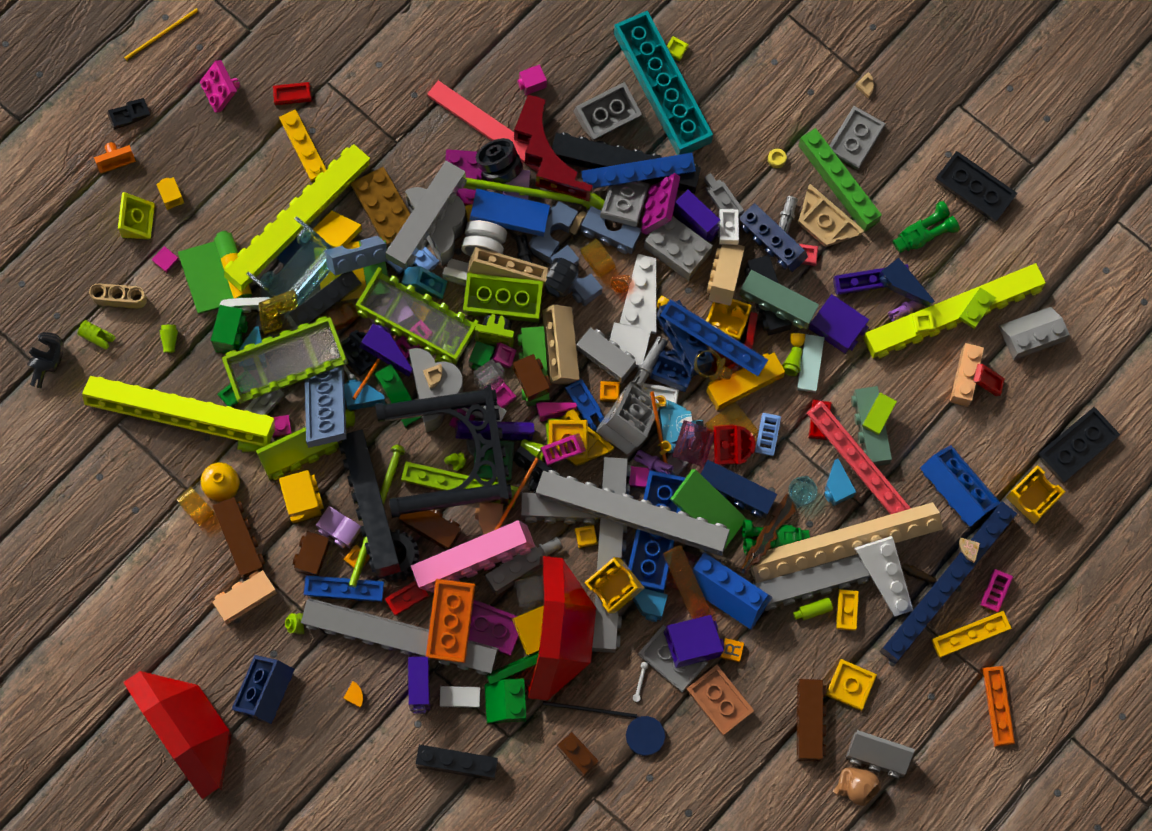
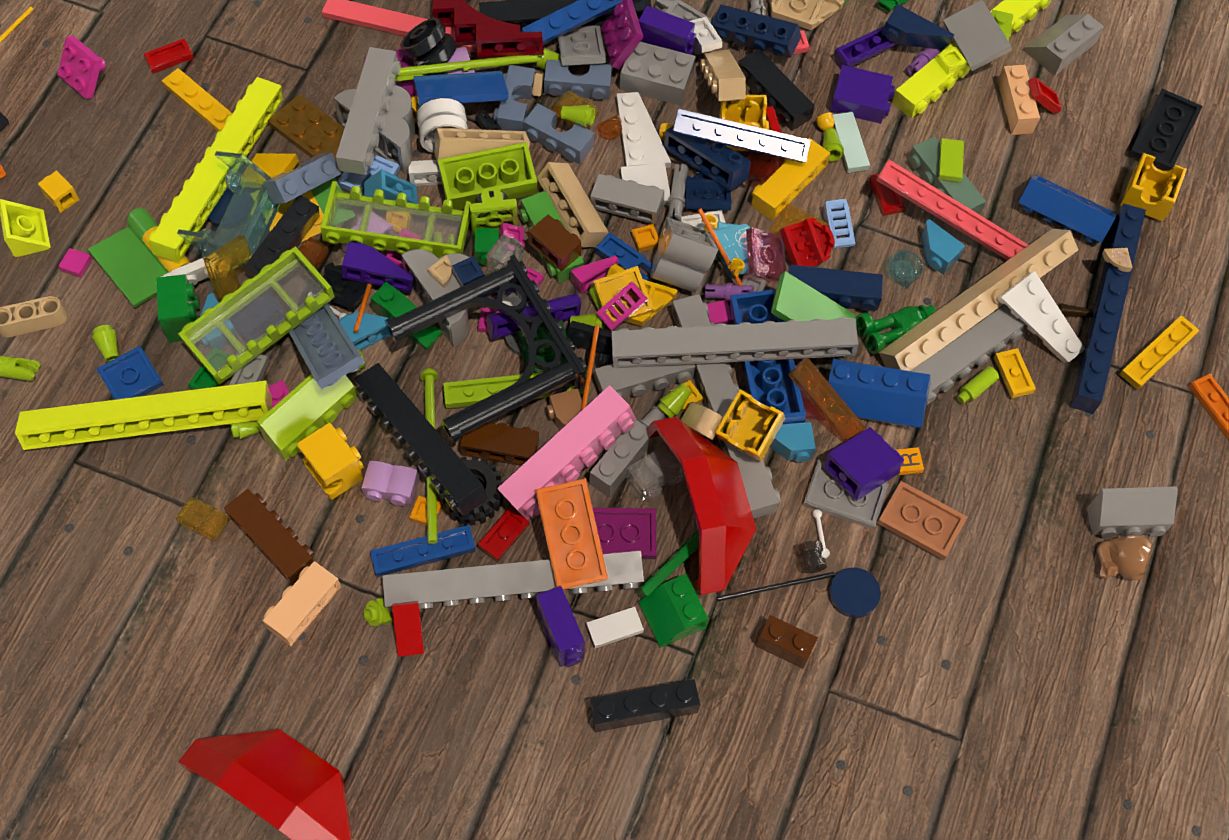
camera: 20 degrees left, 10 degrees down
(177, 371) = (130, 375): none -> blue tile
(220, 481) = (223, 480): yellow cylinder -> none
(263, 689) = (365, 705): dark blue slope -> none
(312, 554) = (368, 523): reddish brown brick -> none
(312, 644) = (408, 628): none -> red tile
(354, 695) = (484, 672): light orange tile -> none
(452, 384) = (467, 270): none -> dark blue plate
(457, 460) = (501, 363): lime plate -> none
(529, 629) = (673, 515): yellow tile -> none
(561, 278) = (546, 131): black piece -> none
(571, 540) = (674, 401): none -> lime cone
(583, 564) = (702, 419): none -> tan beam
(595, 268) = (581, 115): none -> lime cone
(624, 698) = (812, 557): none -> clear smoke wheel
(725, 373) = (767, 170): clear yellow piece -> none
(768, 534) = (891, 321): reddish brown sword -> none
(778, 299) = (792, 82): sand green brick -> none
(810, 720) = (1035, 505): reddish brown brick -> none
(851, 685) = (1058, 452): yellow tile -> none
(954, 308) = (977, 35): none -> light grey tile
(996, 573) = (1167, 283): dark pink slope -> none

